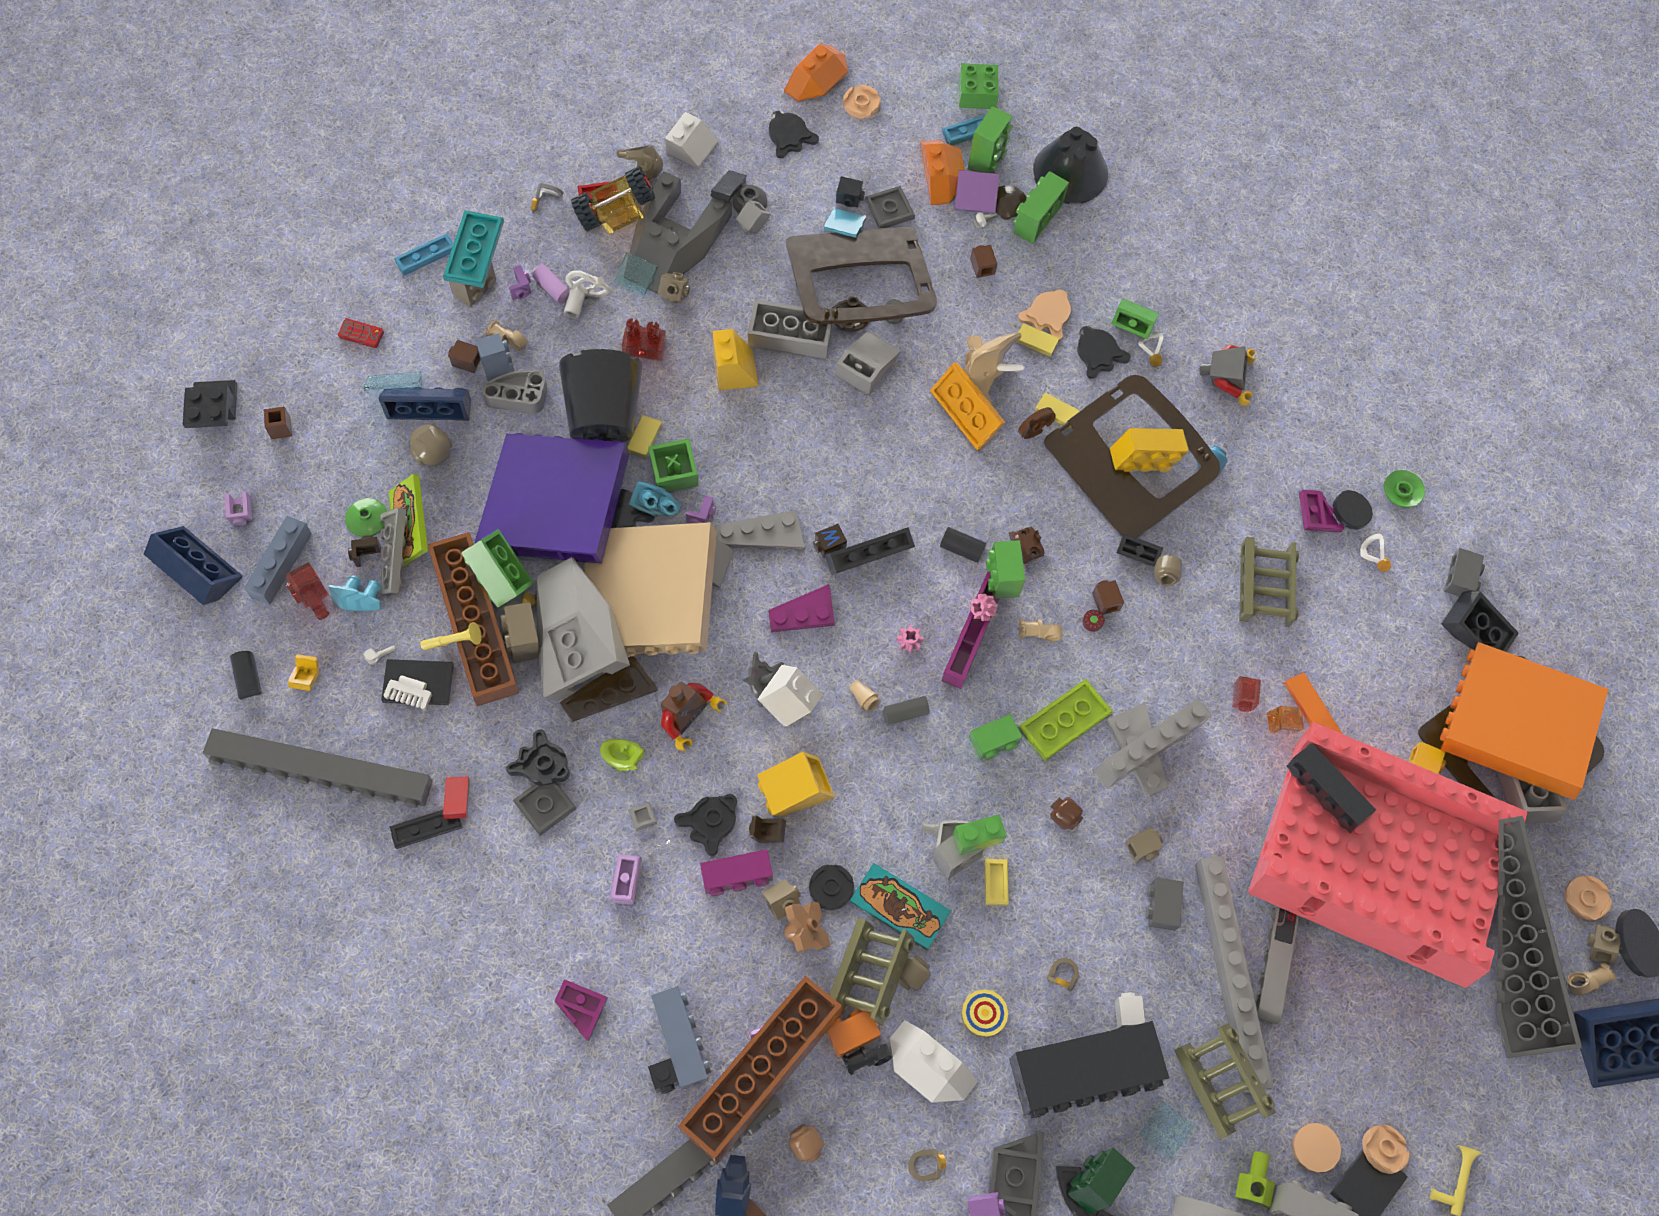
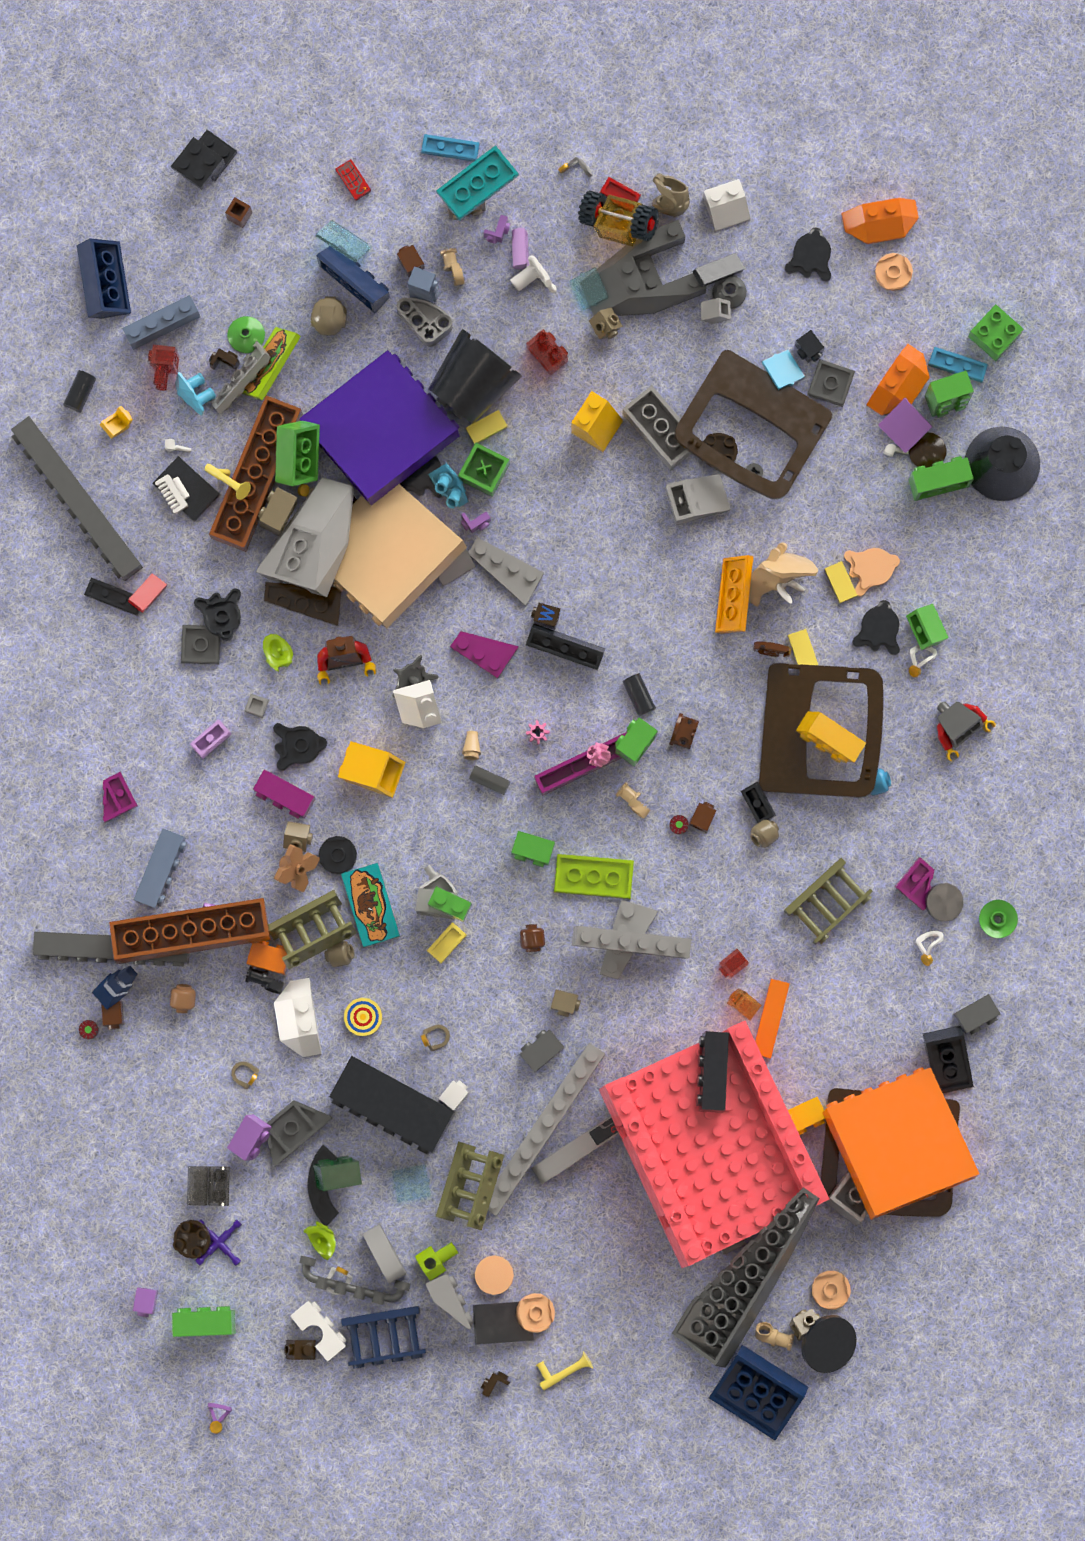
camera: 50 degrees right, 15 degrees up
(239, 509) = (164, 259): lavender window -> none
(663, 1076) = (129, 884): black brick -> none
(767, 830) = (327, 783): dark brown bracket -> none
(983, 261) = (859, 486): reddish brown brick -> none

